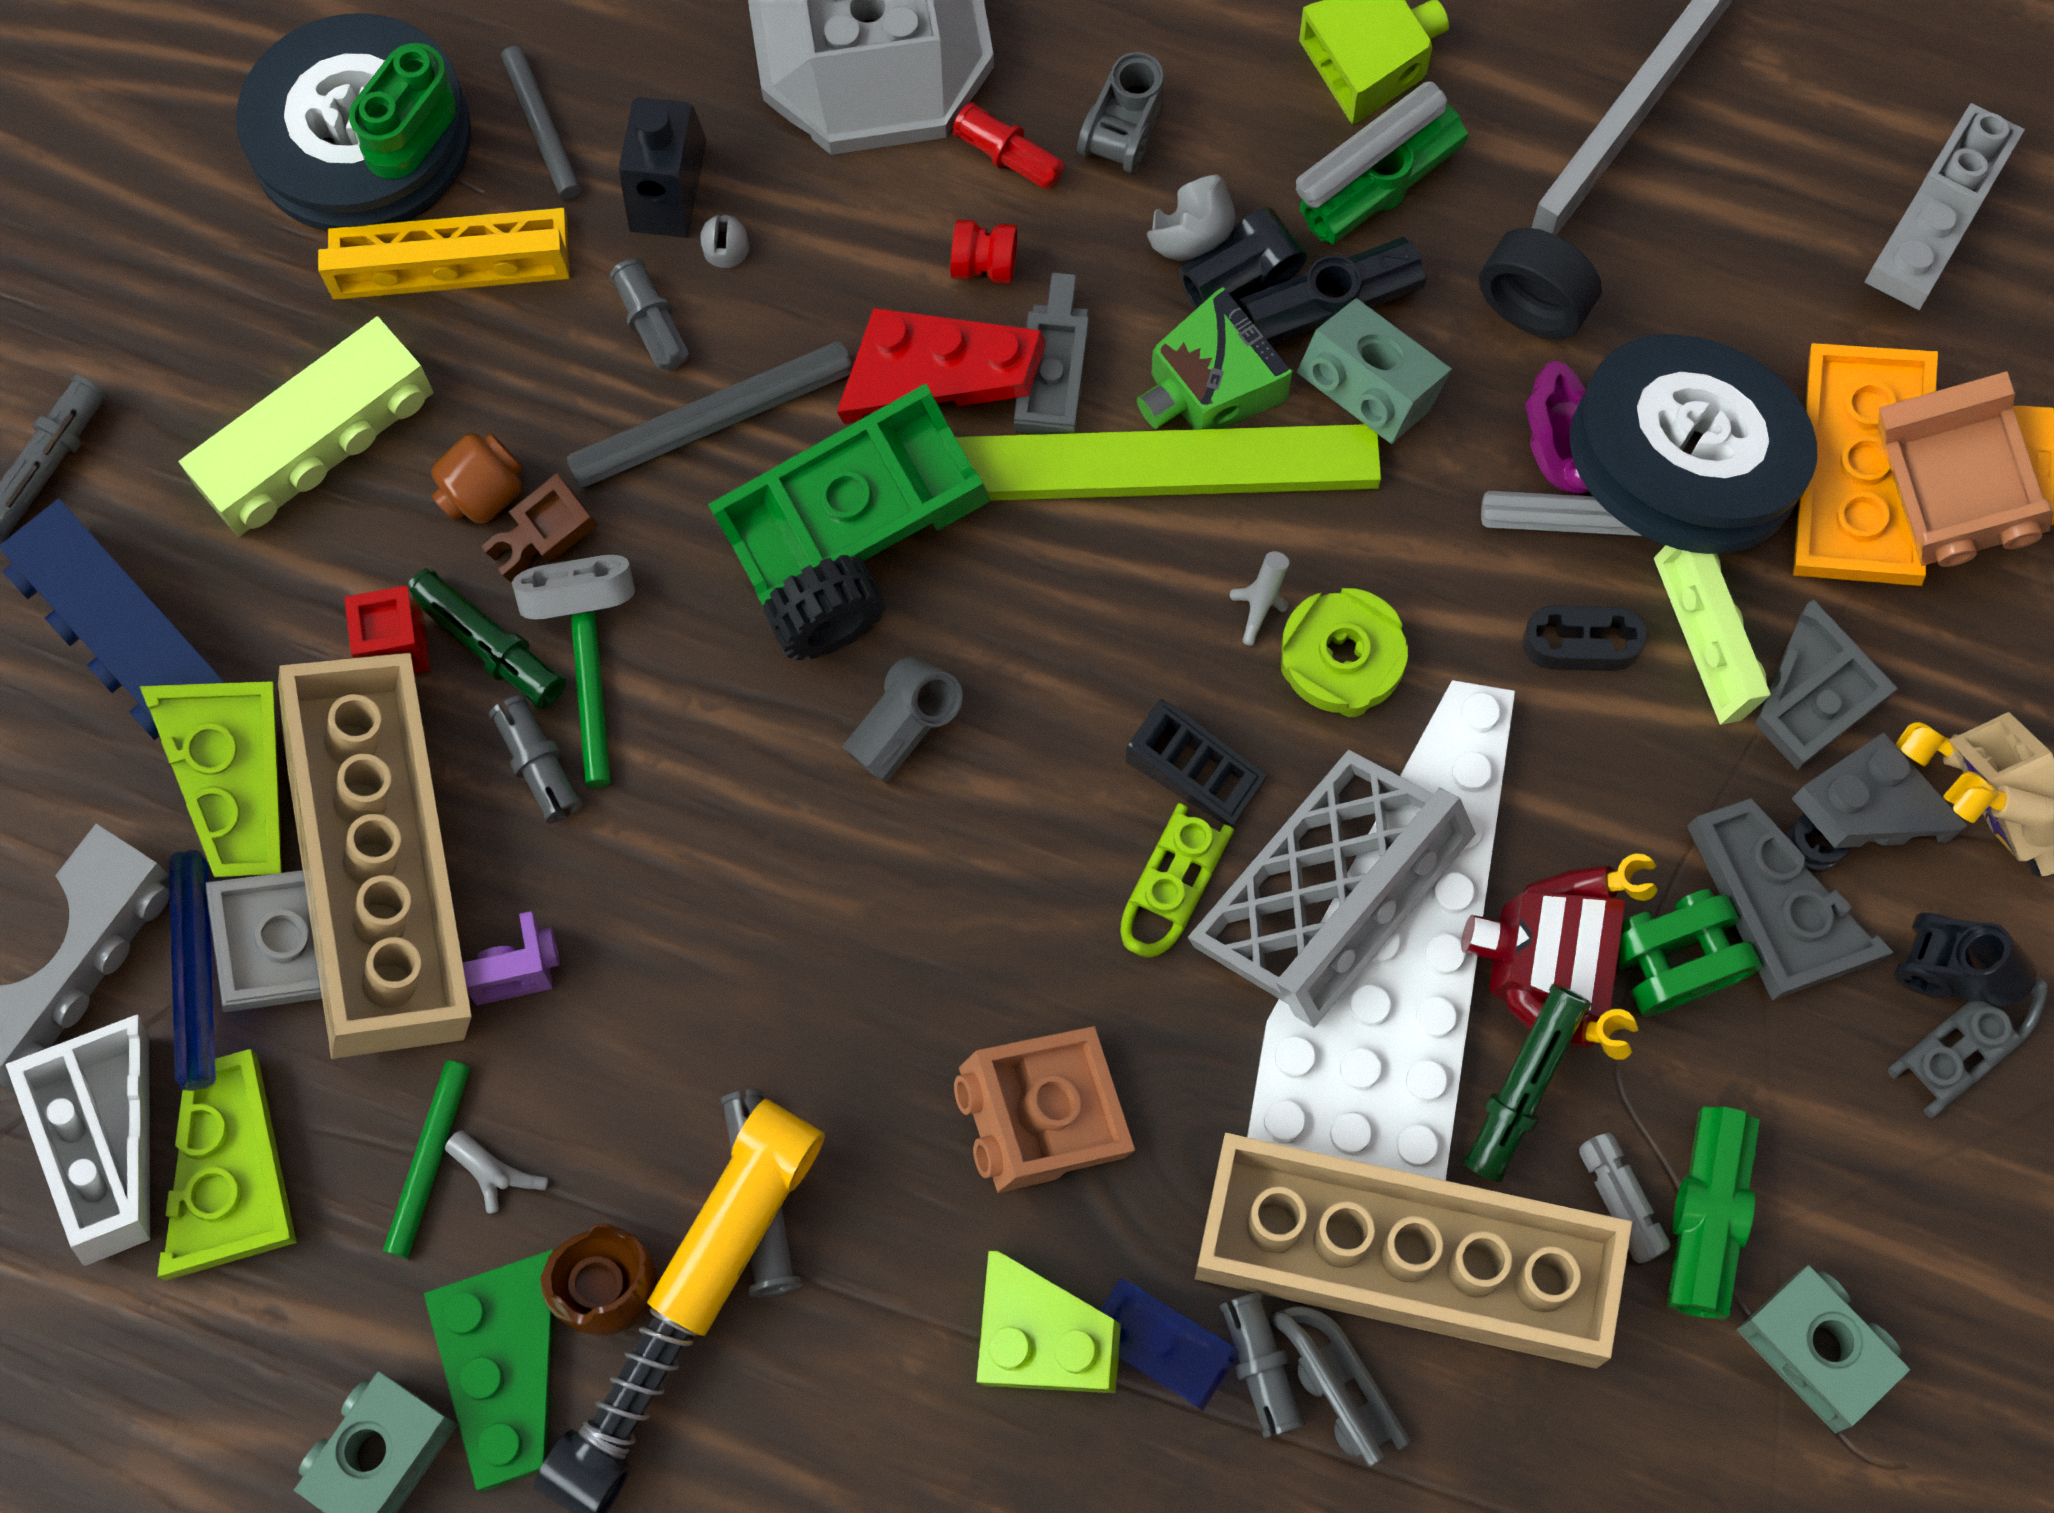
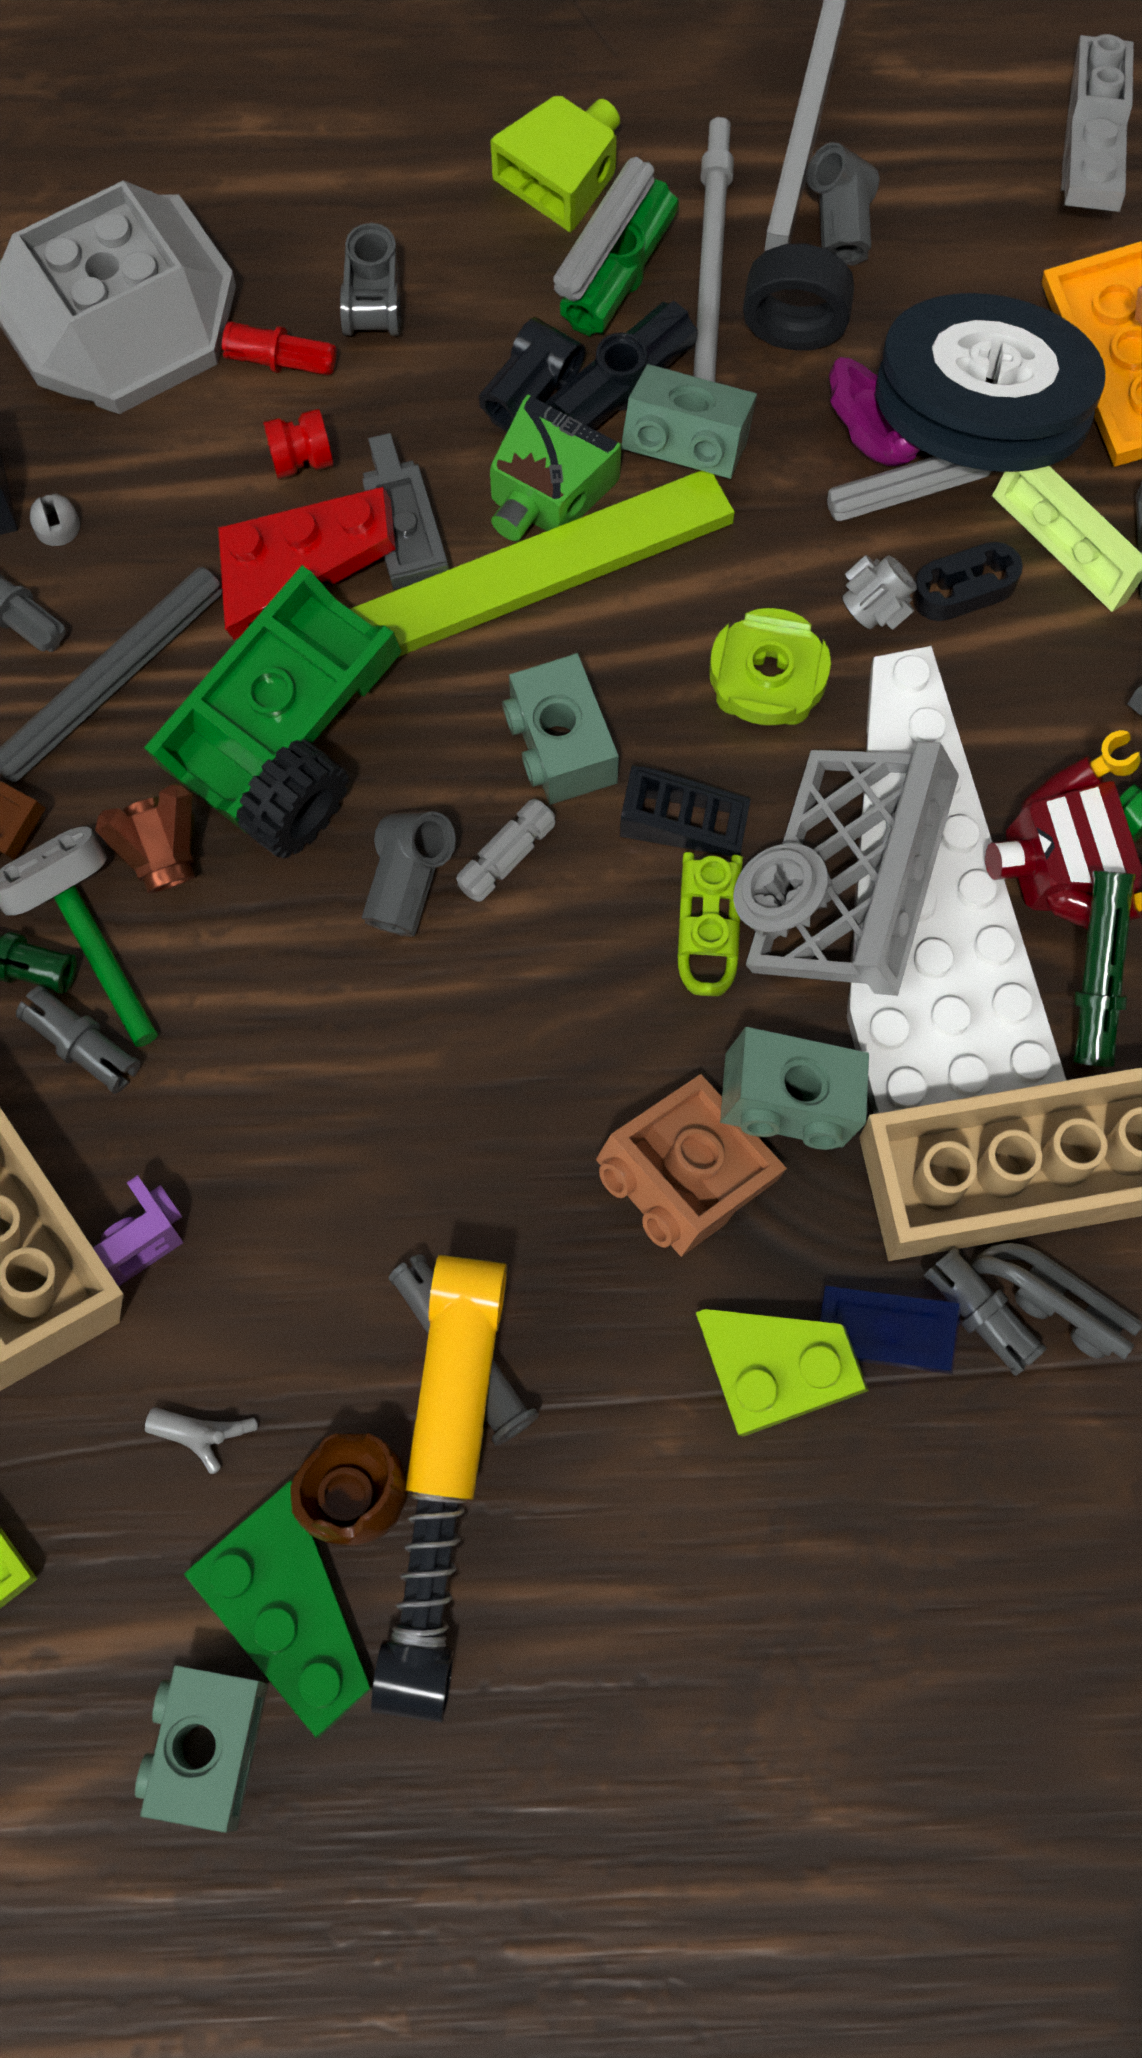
camera: 25 degrees left, 0 degrees up
(426, 1159) = (131, 1449): green bar -> none
(681, 594) = (153, 837): none -> copper rock
(1009, 733) = (506, 850): none -> light grey axle
(1116, 600) = (563, 697): none -> sand green brick
(1199, 223) = (478, 353): light grey hair -> none
(1209, 1077) = (825, 1076): none -> sand green brick
(1241, 860) = (764, 878): none -> light grey gear
(1263, 593) = (678, 643): light grey bar -> none
(1485, 617) = (879, 592): none -> light grey gear
(1524, 118) = (716, 175): none -> light grey bar
(1644, 184) = (845, 190): none -> dark grey piece

